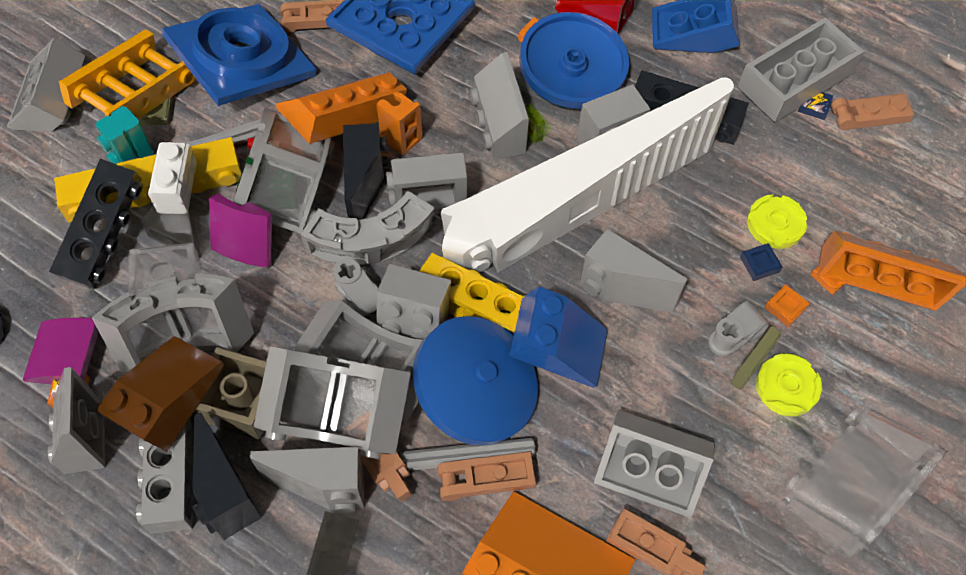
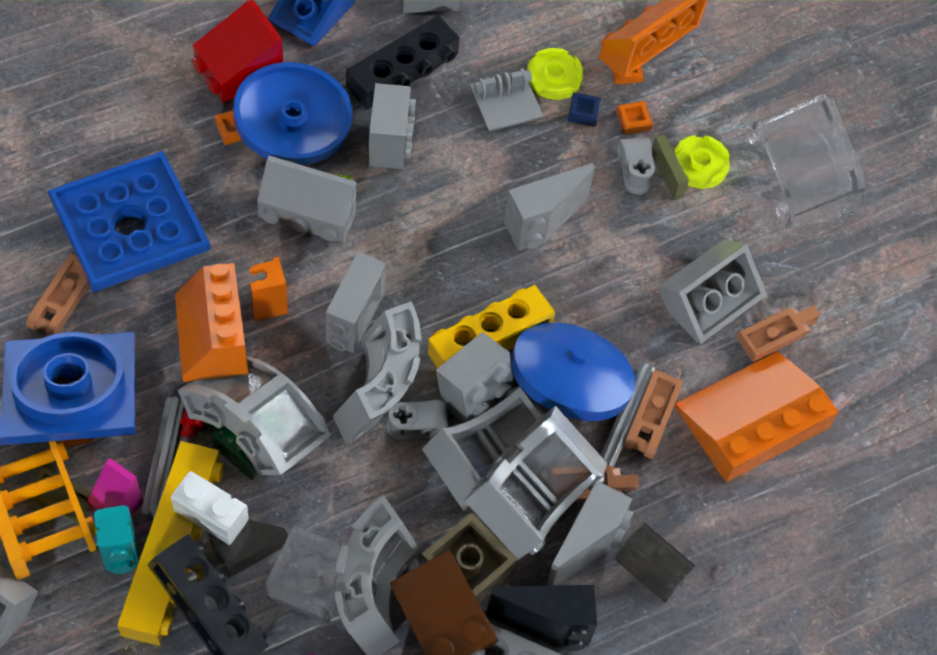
camera: 65 degrees left, 0 degrees up
(165, 121) = (115, 488): none -> dark pink slope
(240, 231) = (301, 483): magenta slope -> none
(363, 167) = (298, 348): black slope -> none
(558, 337) = (570, 291): blue slope -> none
(582, 182) = (443, 235): white brick -> none
(717, 198) = (506, 100): none -> light grey hinge

